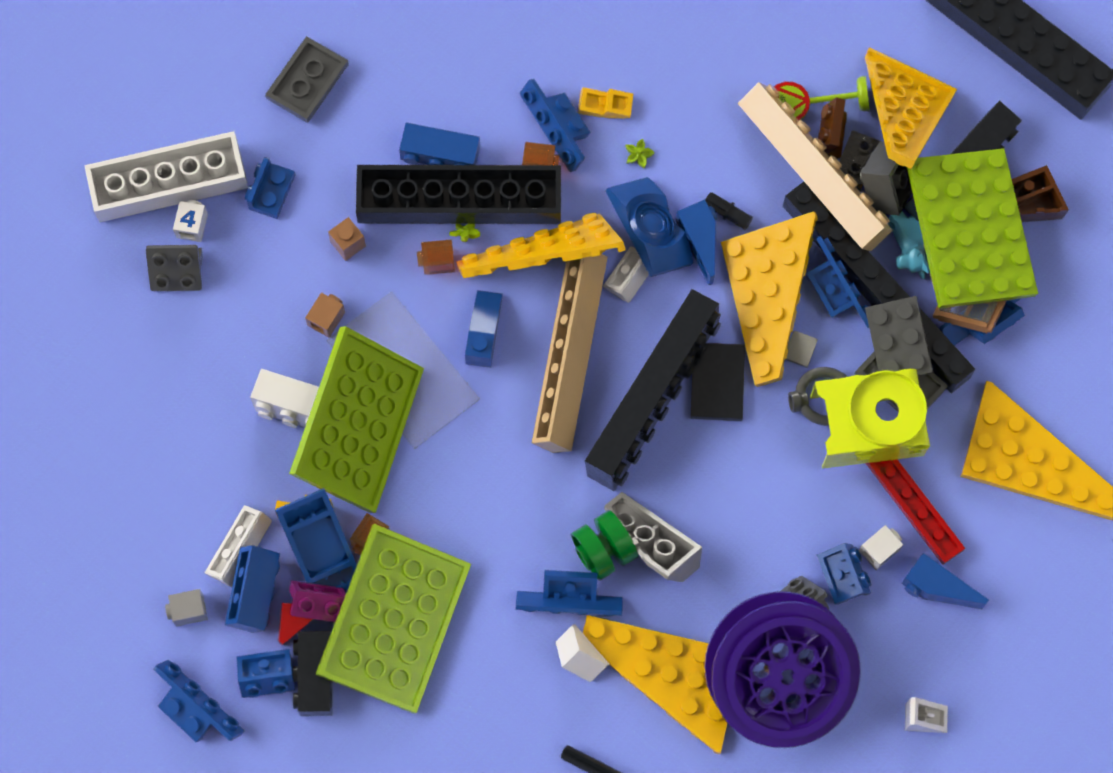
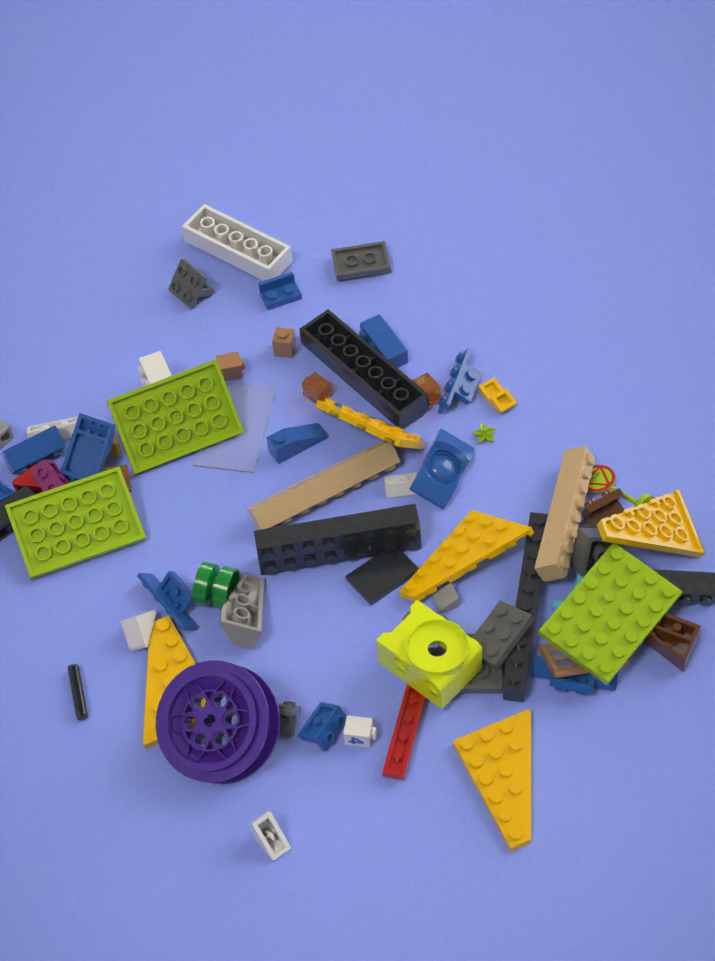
camera: 55 degrees right, 20 degrees down
(190, 220) = (223, 273): white brick -> none
(465, 232) = (347, 391): lime plant -> none
(700, 228) = (463, 497): blue slope -> none
(729, 211) = (495, 499): black axle -> none
(832, 286) = (503, 575): blue bracket -> none
(938, 584) = (364, 780): blue slope -> none

